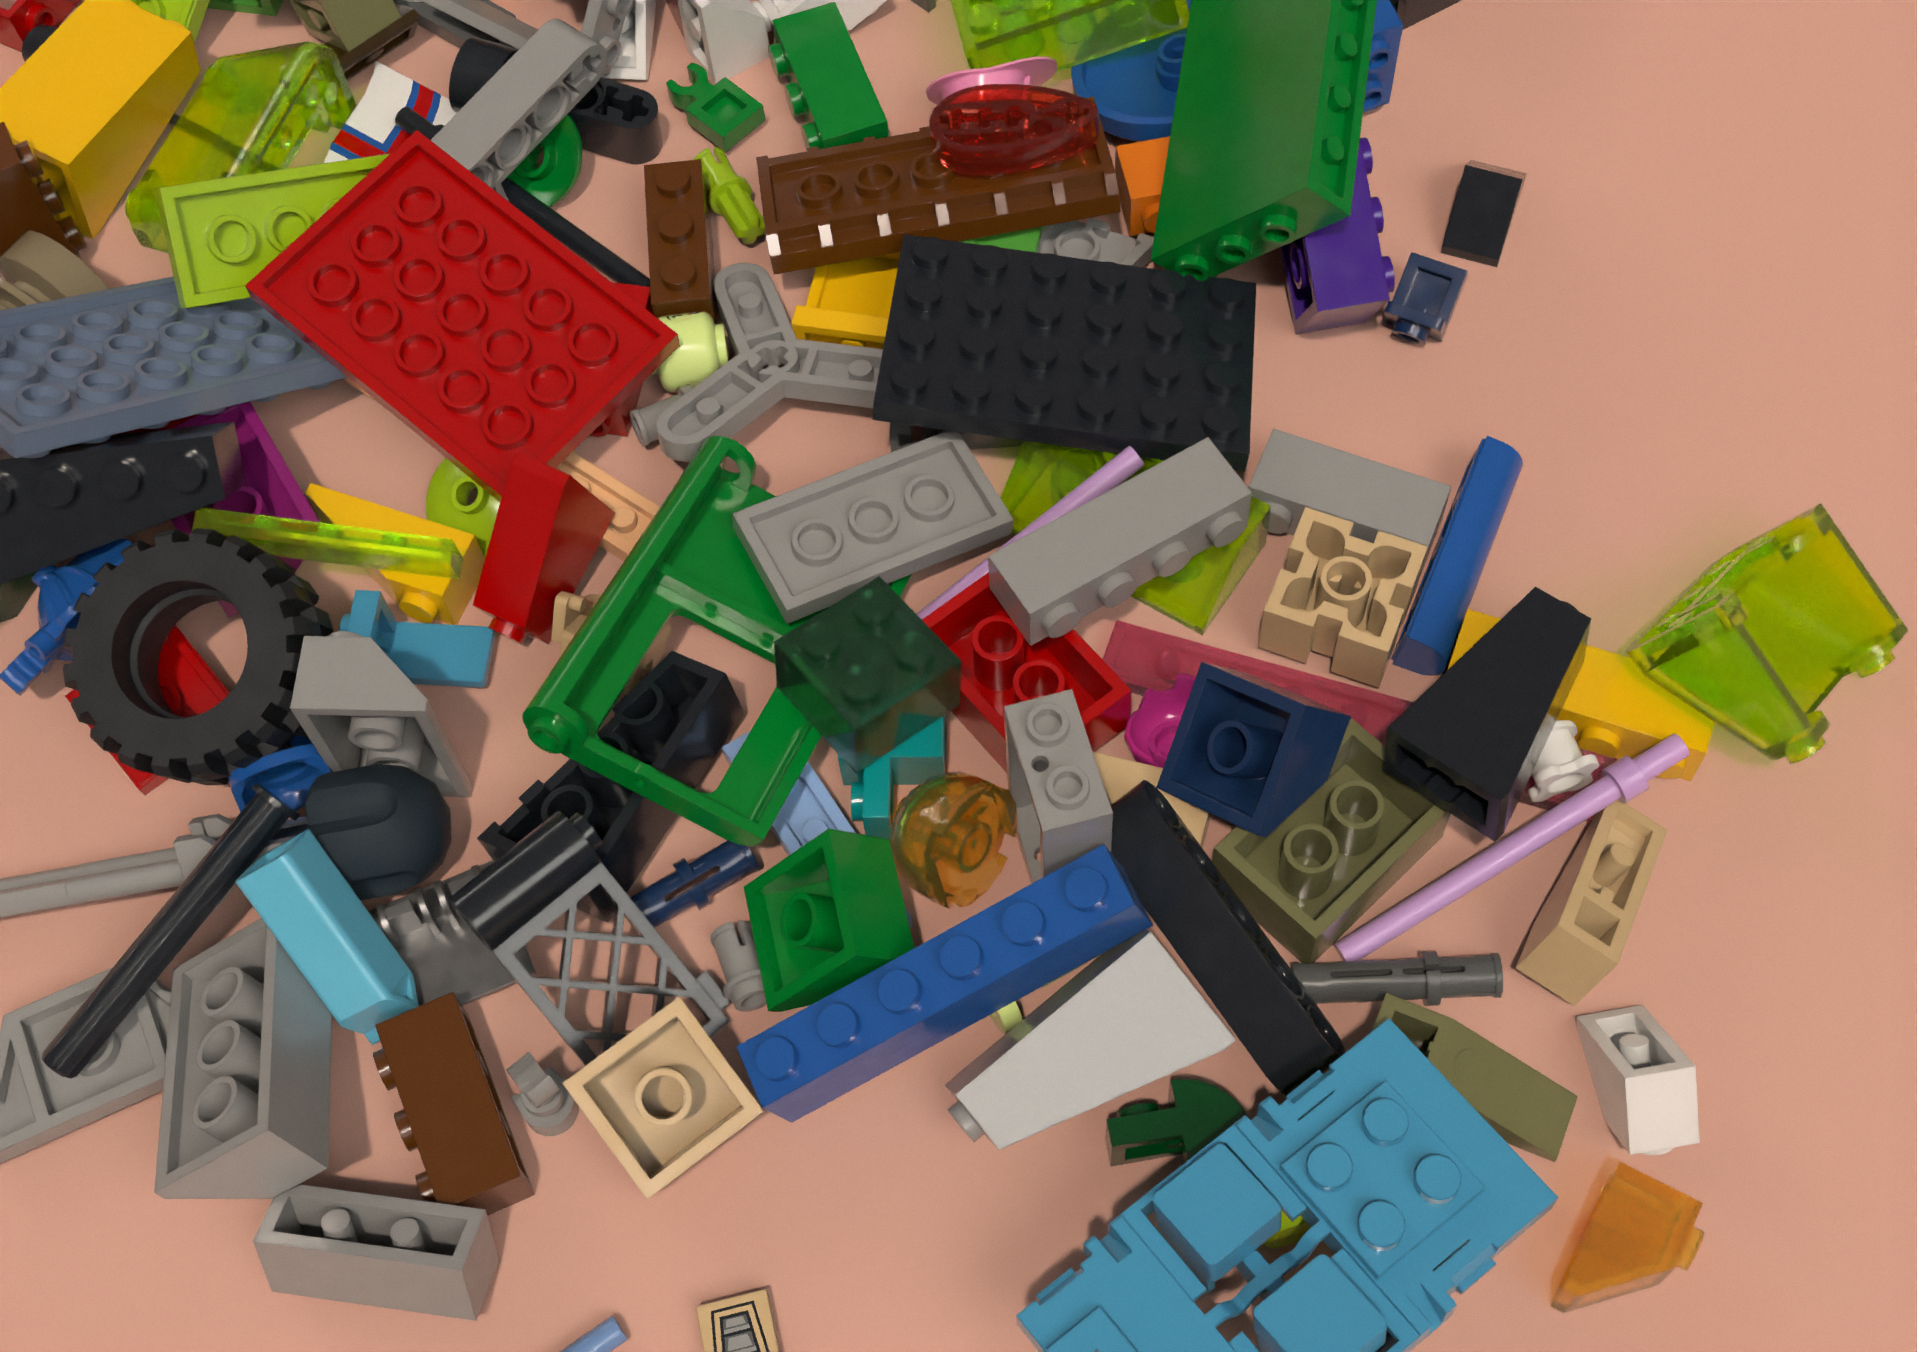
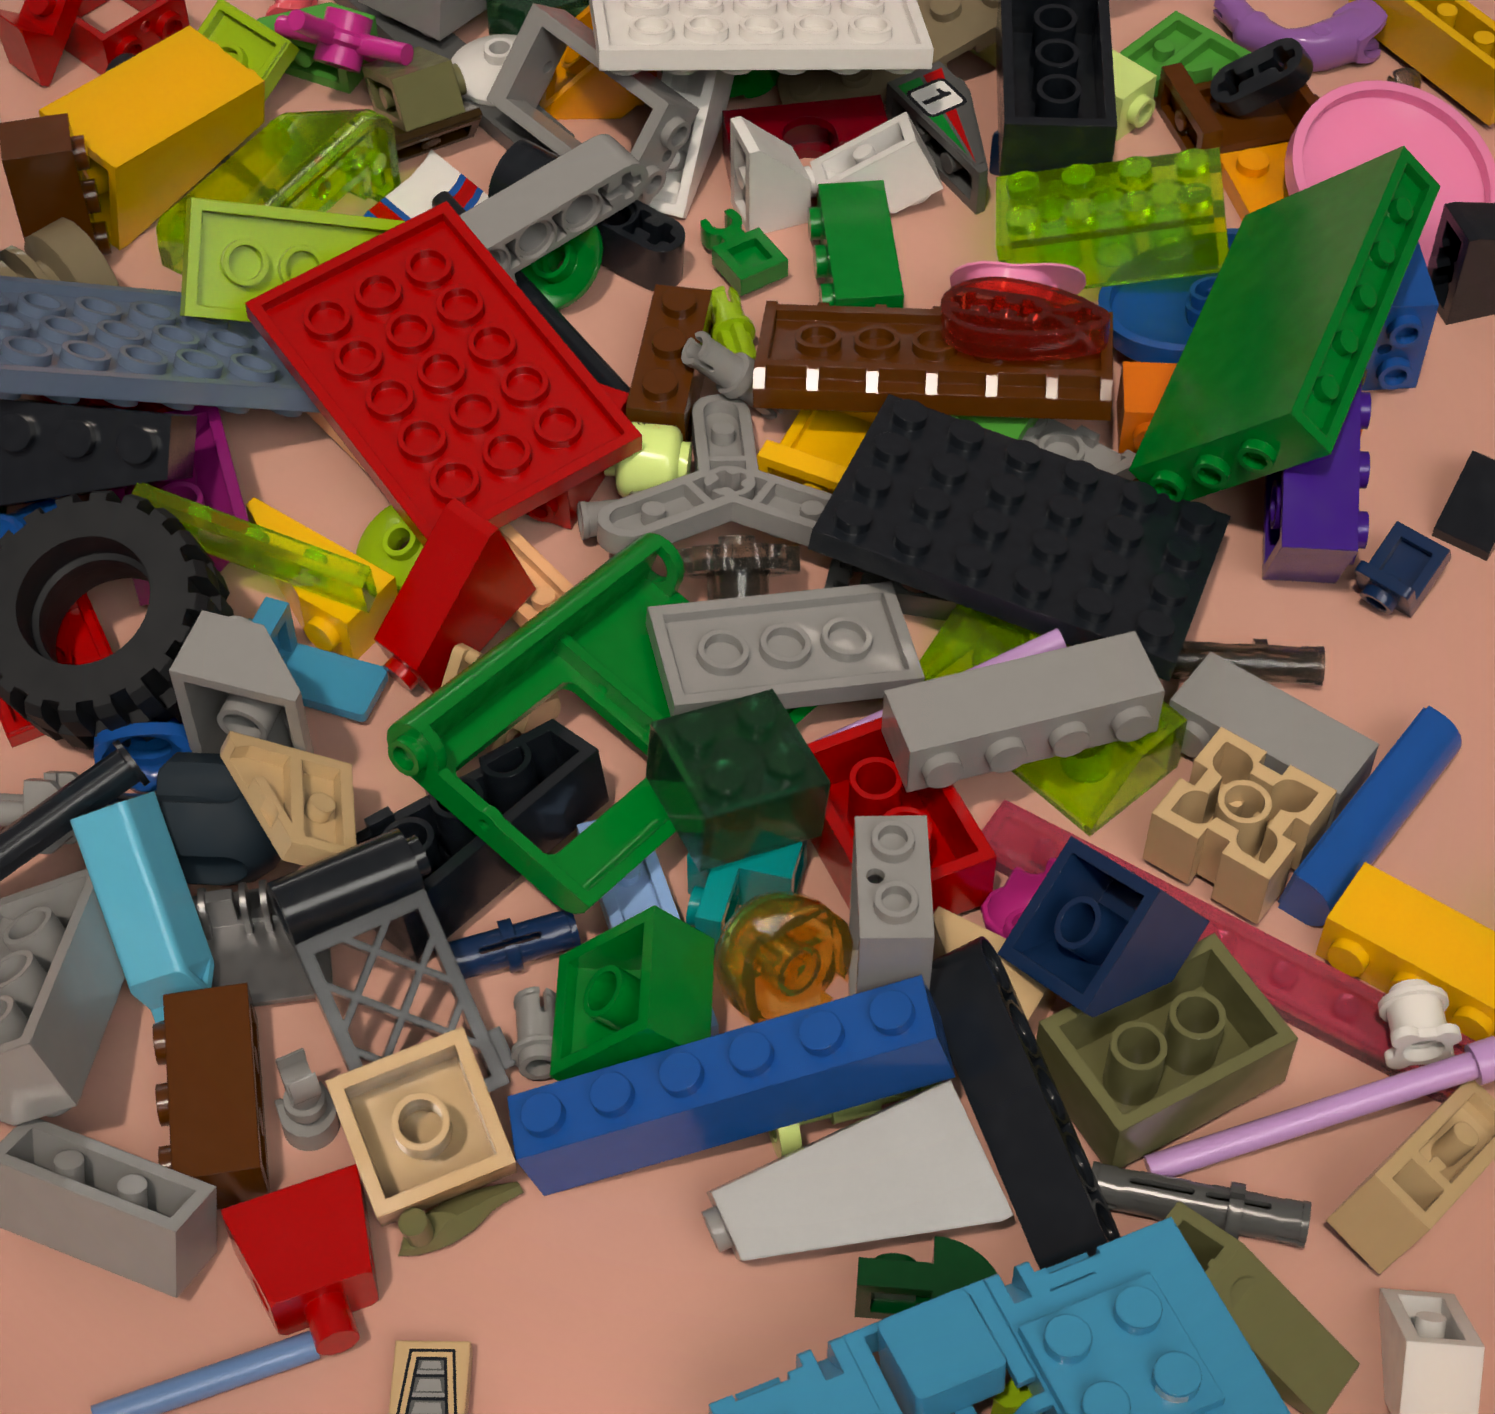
camera: 10 degrees right, 10 degrees down
(450, 799) = (295, 795): none -> tan wing
(591, 1246) = (309, 1256): none -> red torso
(714, 1171) = (451, 1219): none -> olive bar
(741, 240) = (728, 370): none -> light grey pin
(806, 447) = (739, 565): none -> clear smoke plant
(1319, 422) = (1268, 662): none -> clear smoke pin
(1490, 715) = (1358, 956): black slope -> none

